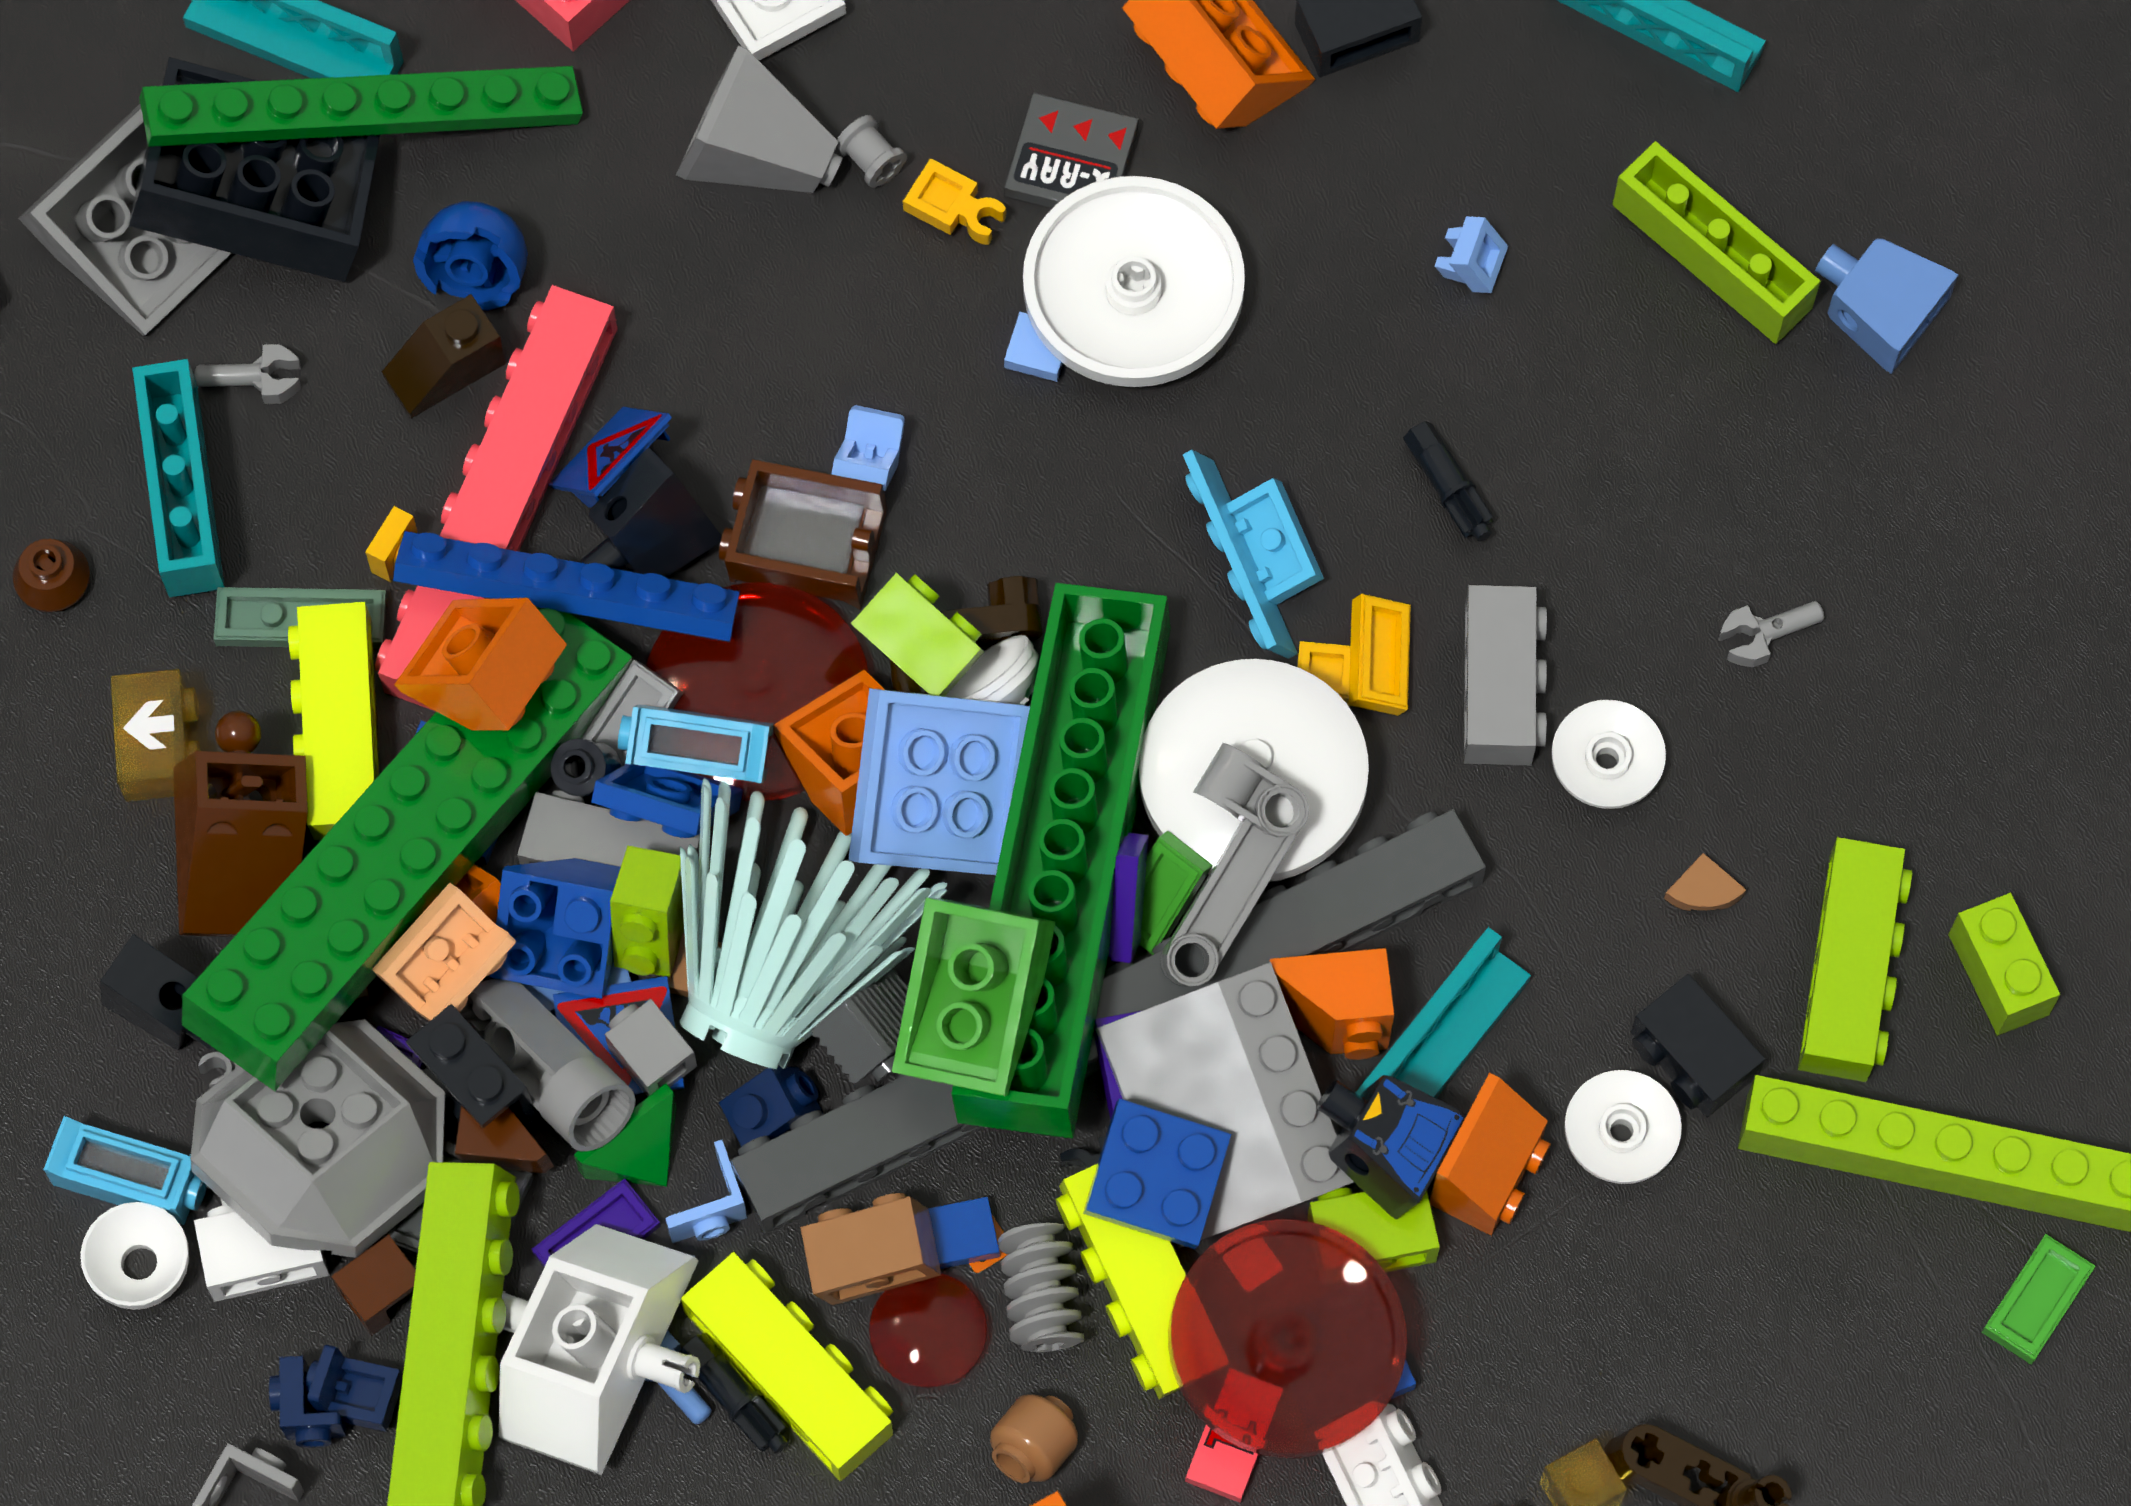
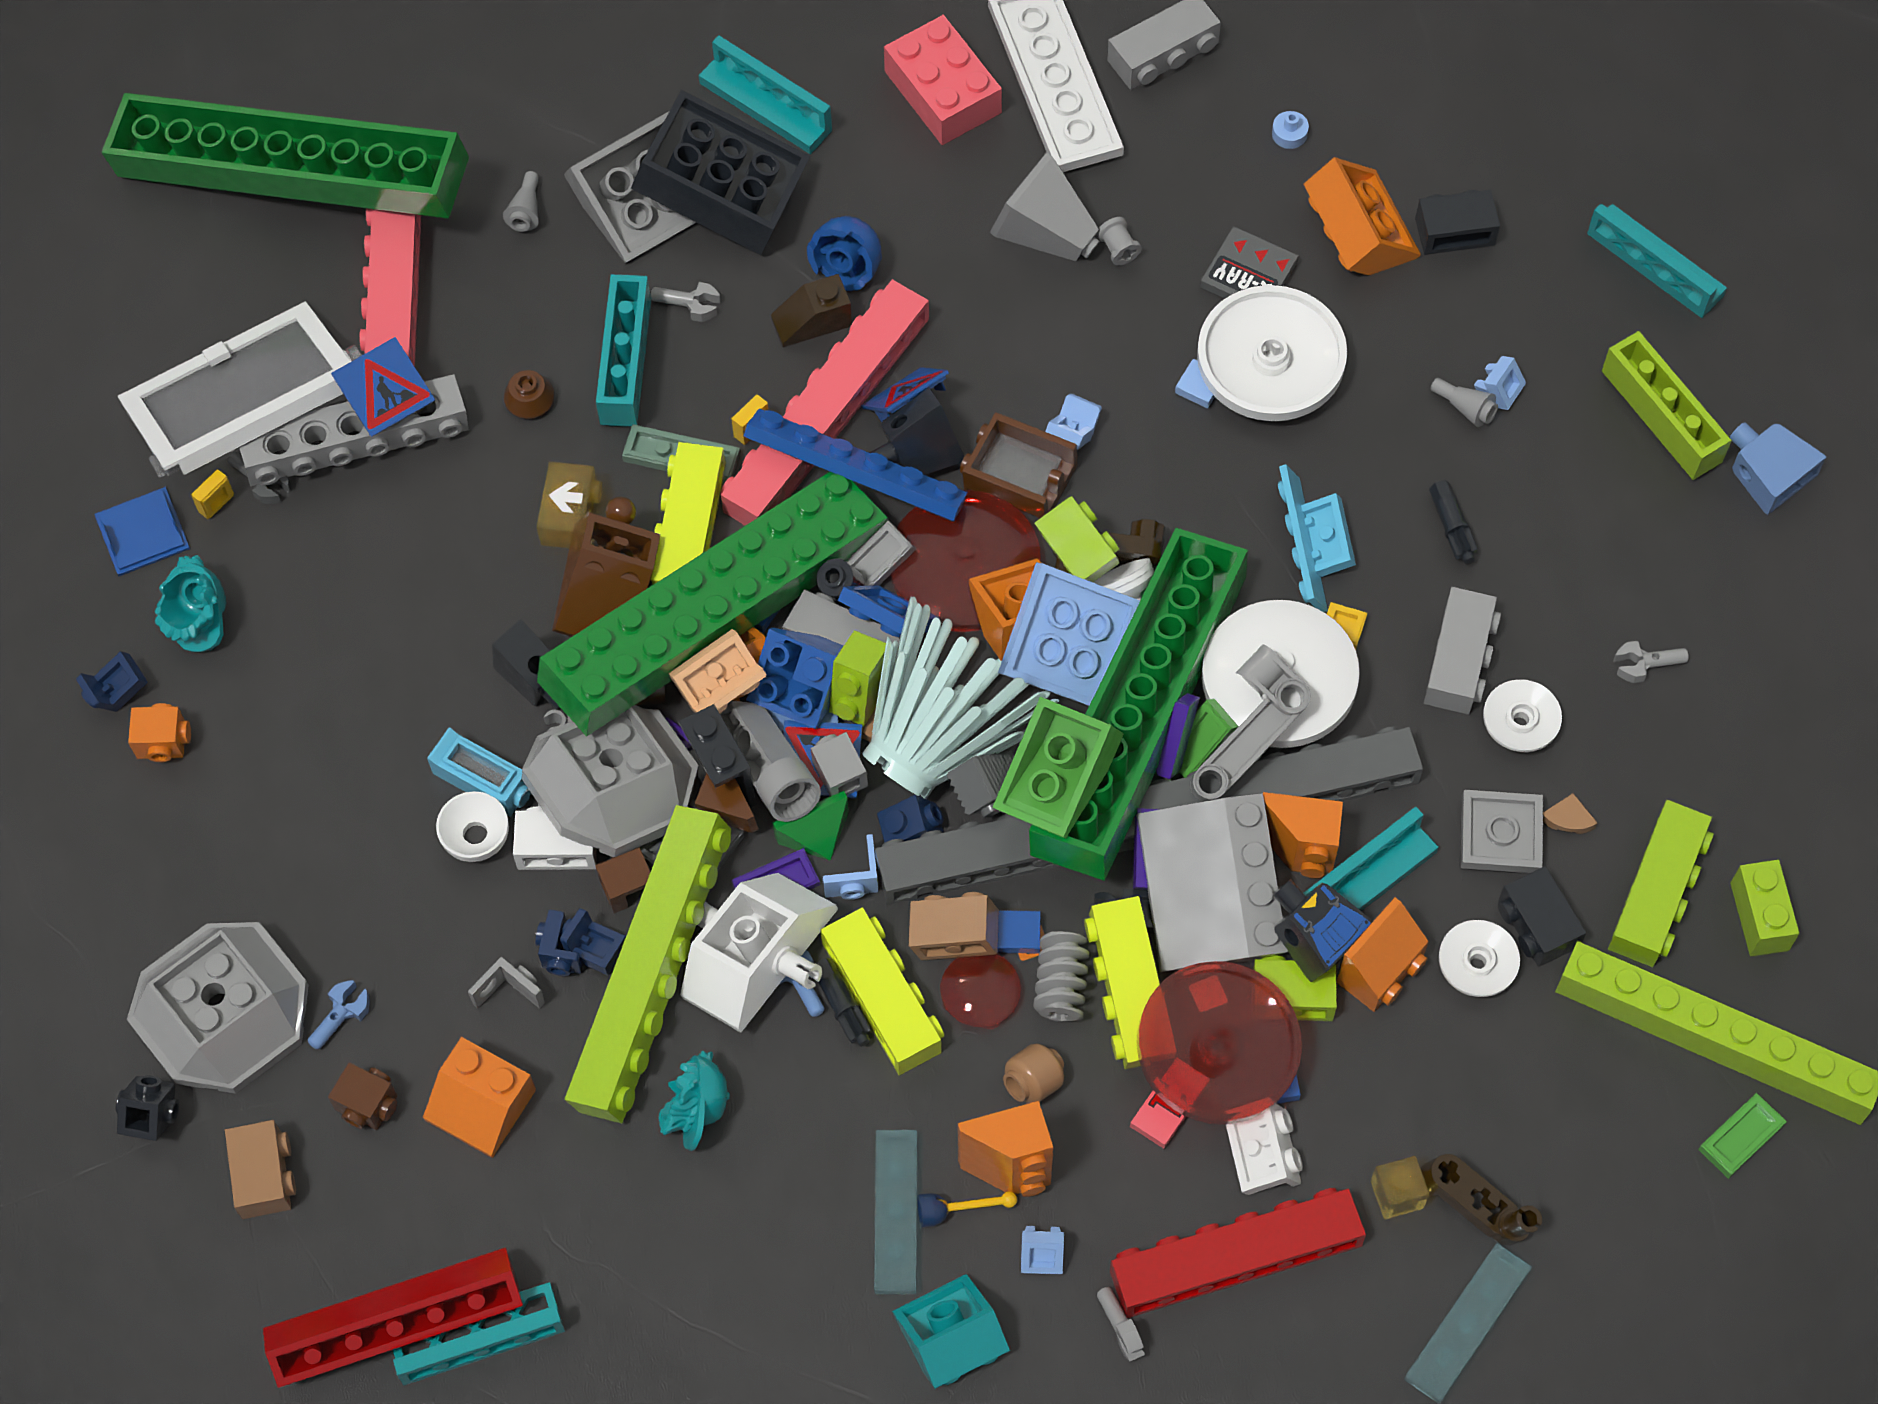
camera: 15 degrees right, 5 degrees down
(359, 105) = (796, 145): green plate -> none
(483, 662) = (789, 495): orange slope -> none
(695, 742) = (915, 578): medium azure window -> none
(948, 198) = (1161, 280): yellow plate -> none
(1157, 1173) = (1155, 915): blue plate -> none
(1379, 654) = (1382, 621): yellow tile -> none
(1440, 296) = (1475, 405): none -> light grey cone
(1615, 932) = (1501, 831): none -> light grey plate

